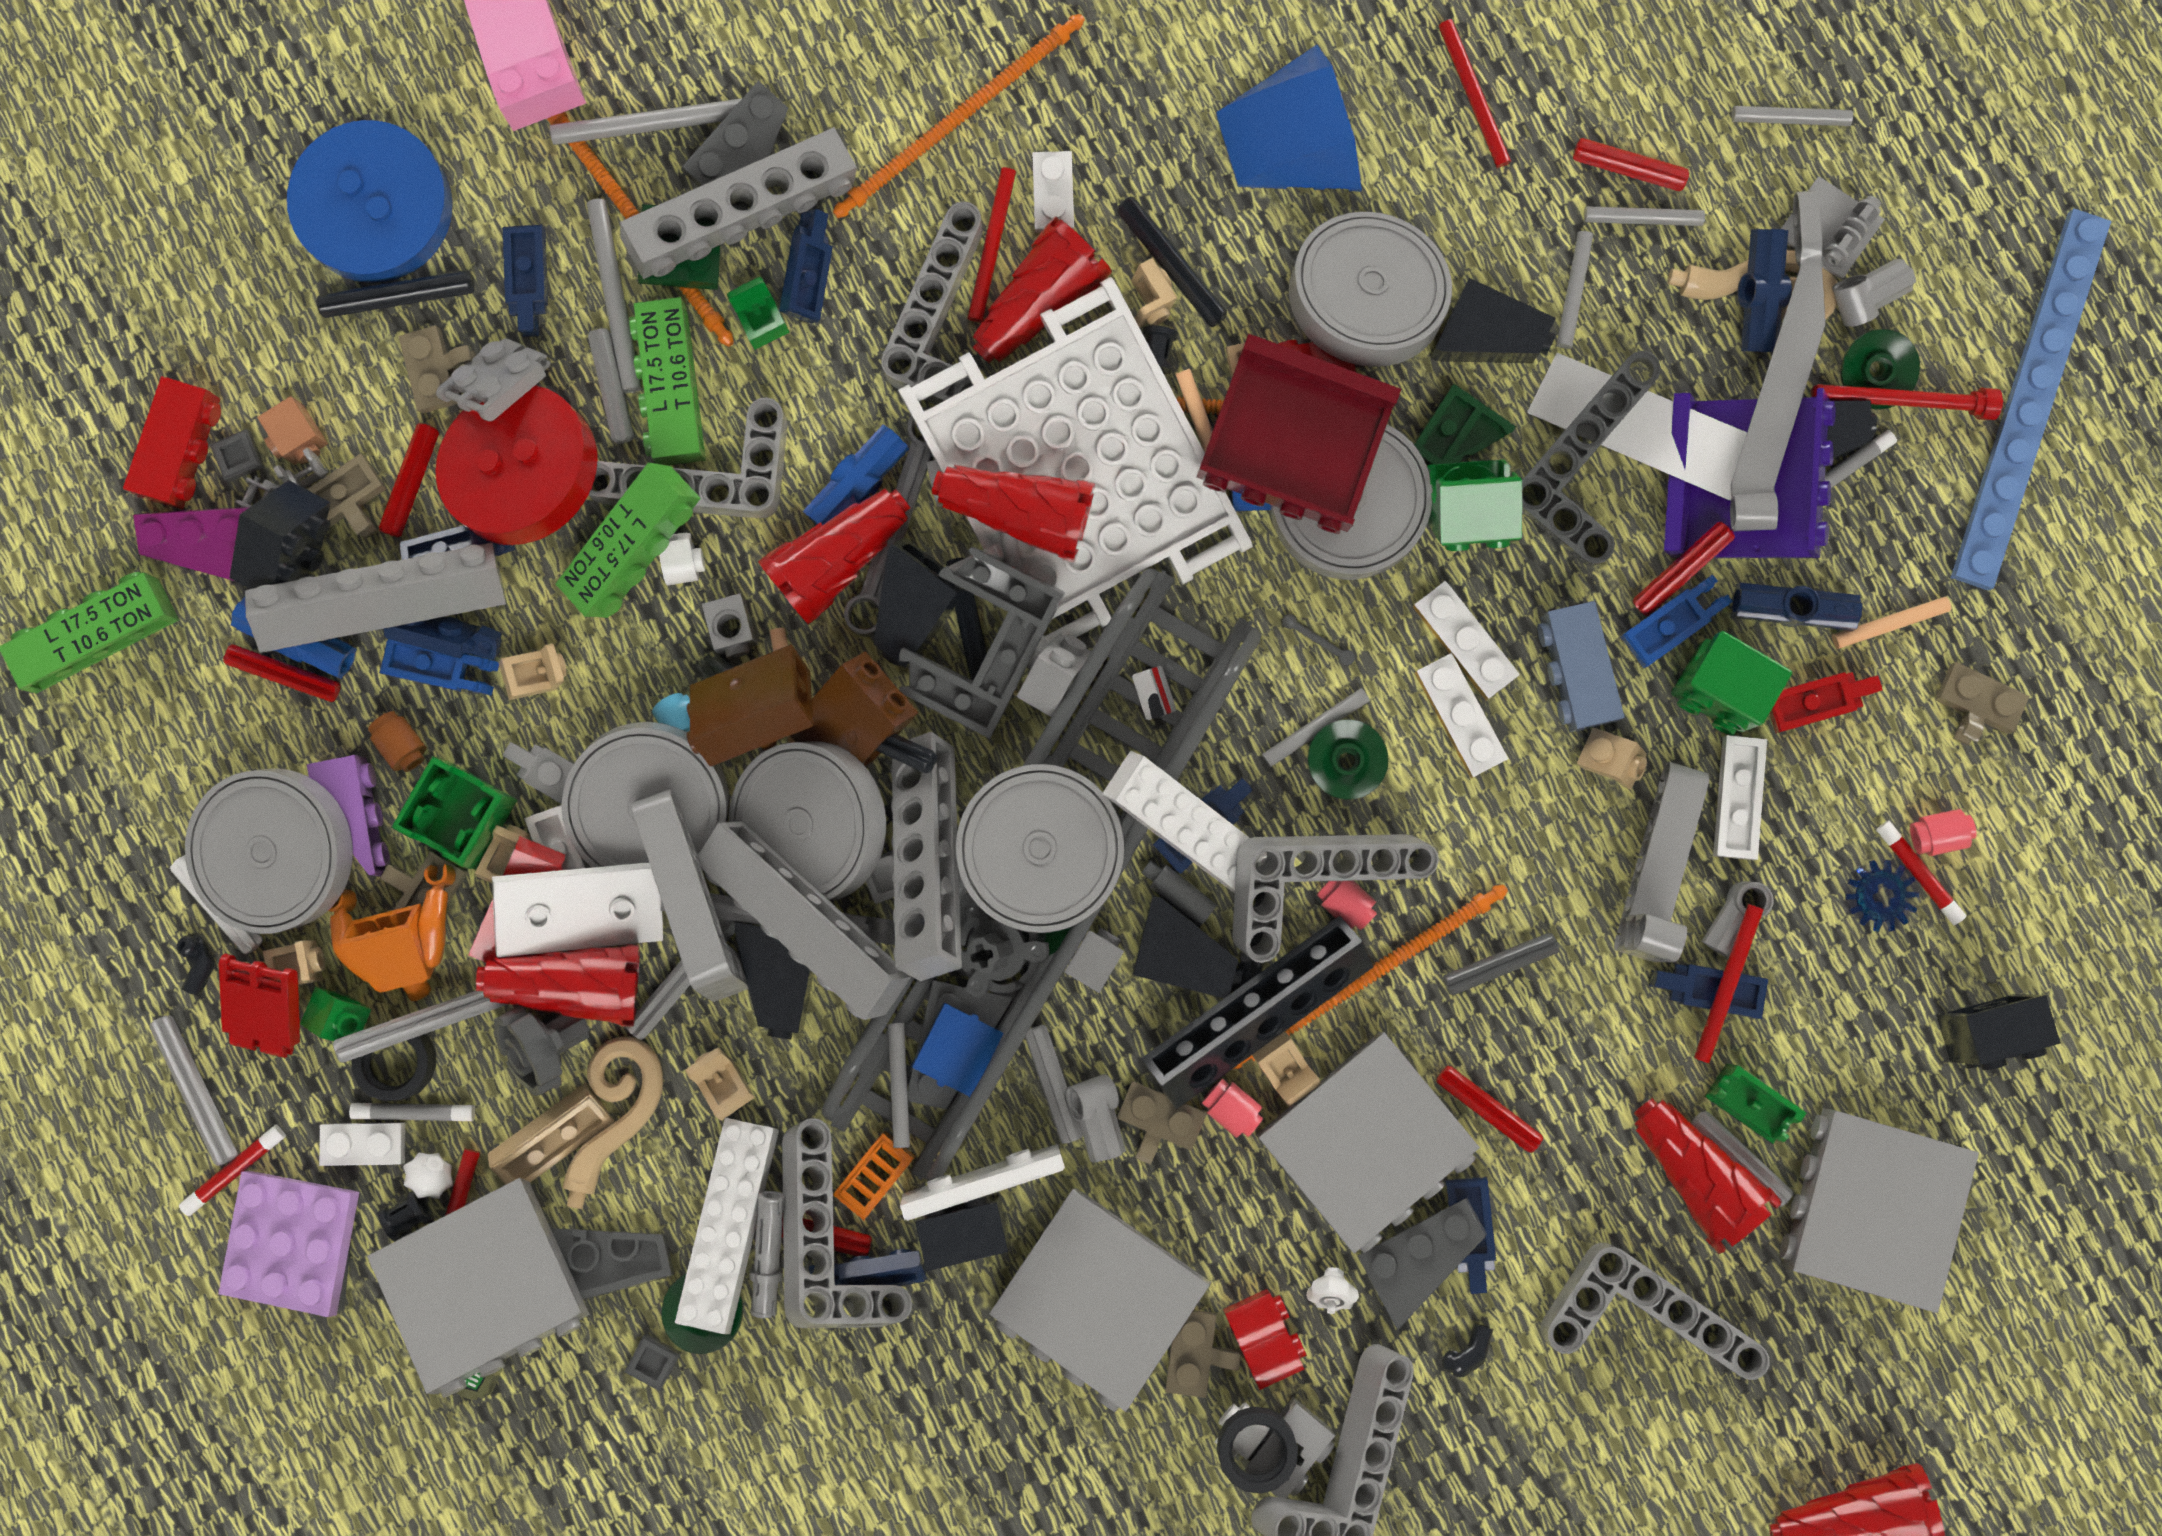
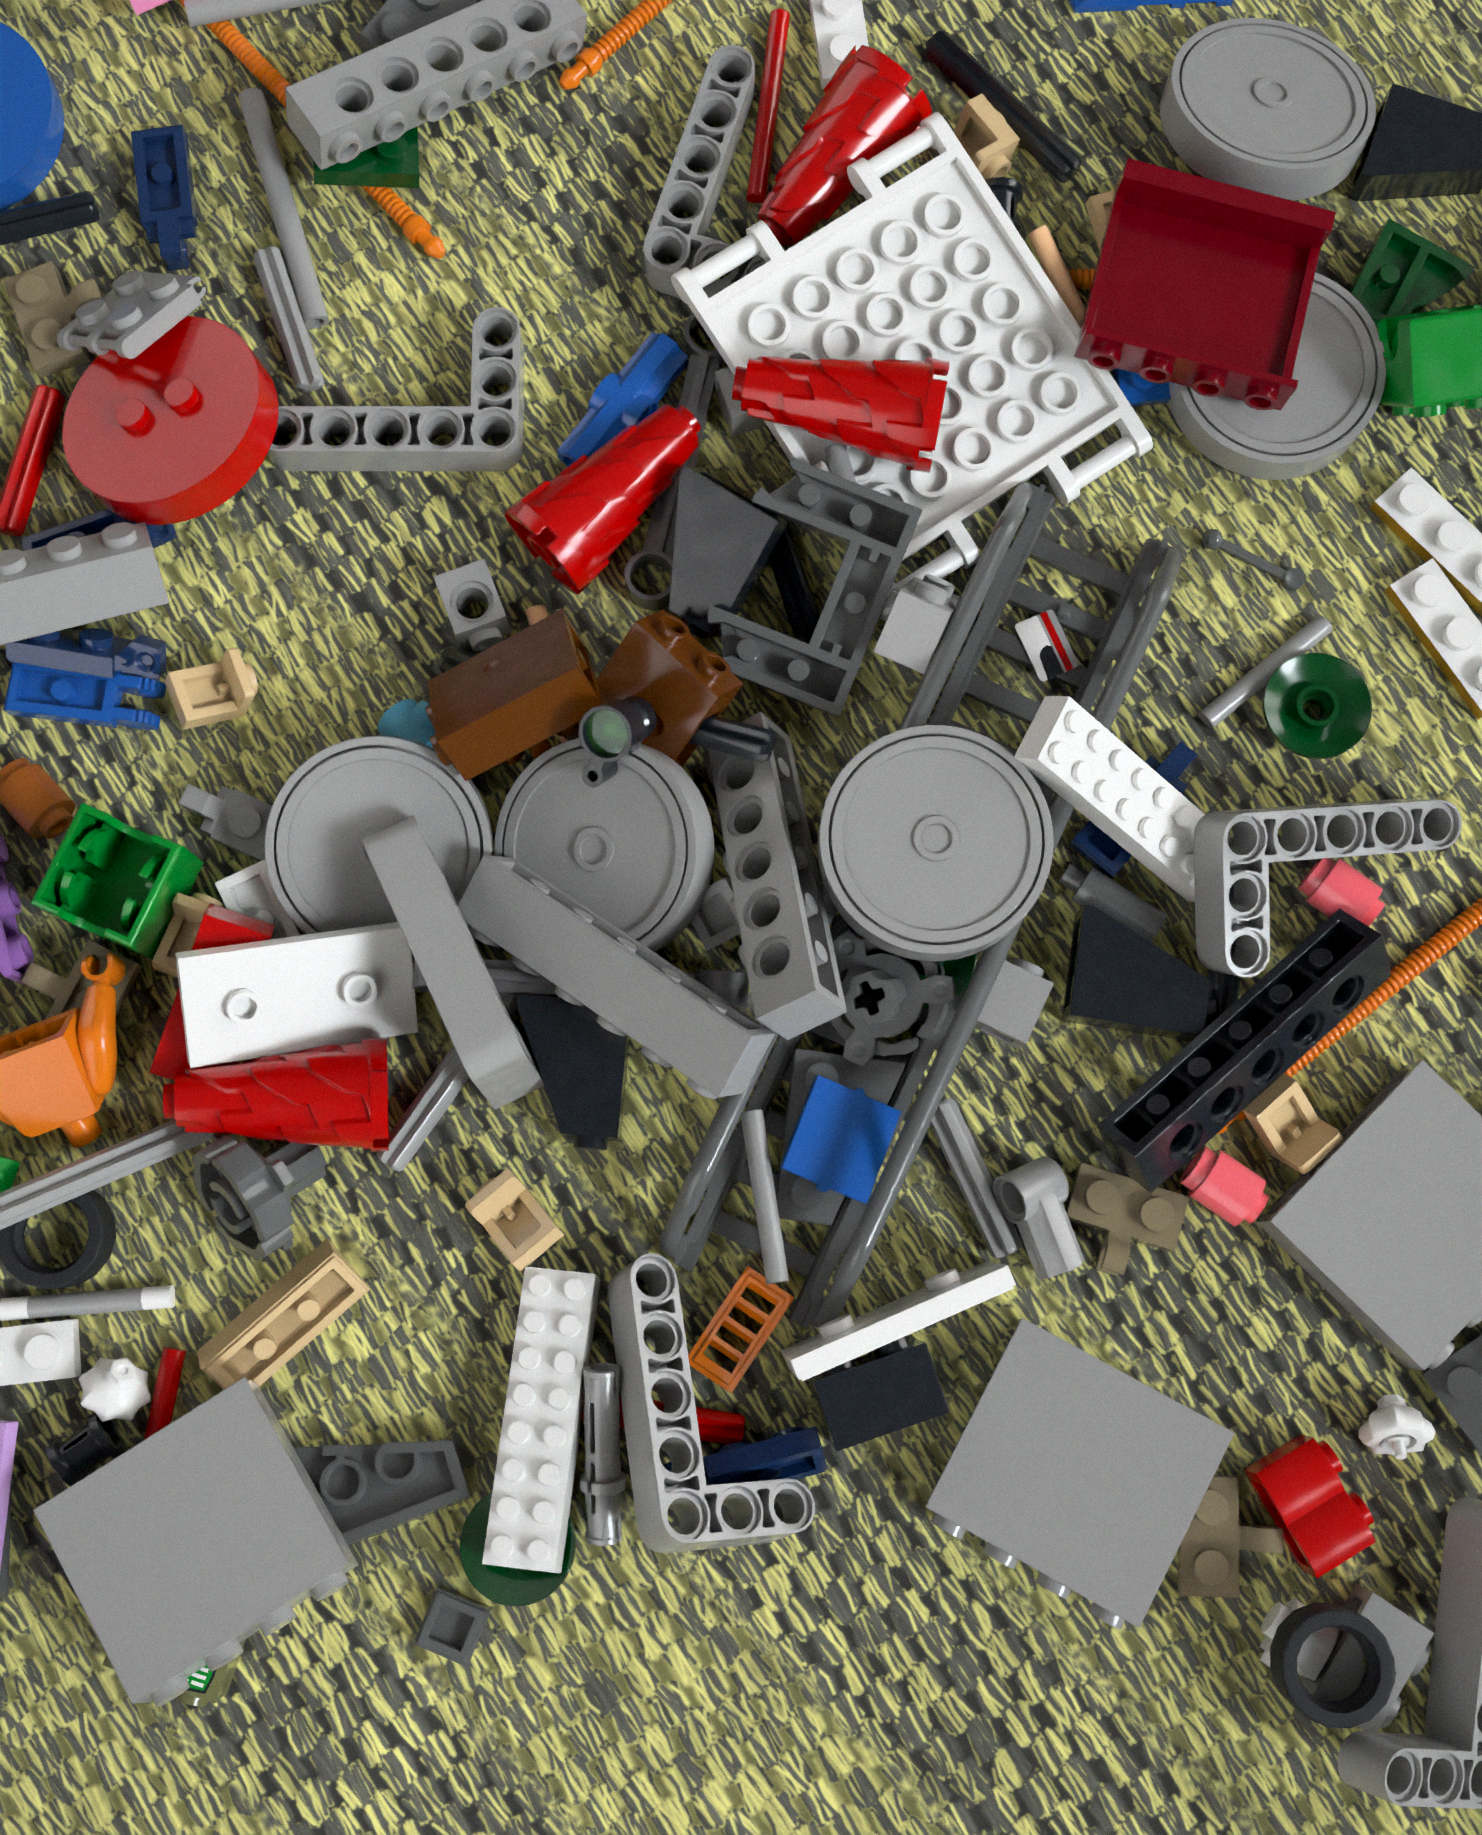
camera: 10 degrees left, 5 degrees down
(588, 1161) = (338, 1349): tan plant -> none
(628, 541) = (327, 501): bright green brick -> none
(668, 382) = (363, 302): bright green brick -> none
(681, 560) = (398, 527): white plate -> none
(758, 312) = (473, 207): green bracket -> none
(807, 268) = (533, 151): dark blue hinge -> none
(818, 746) = (612, 733): none -> black piece

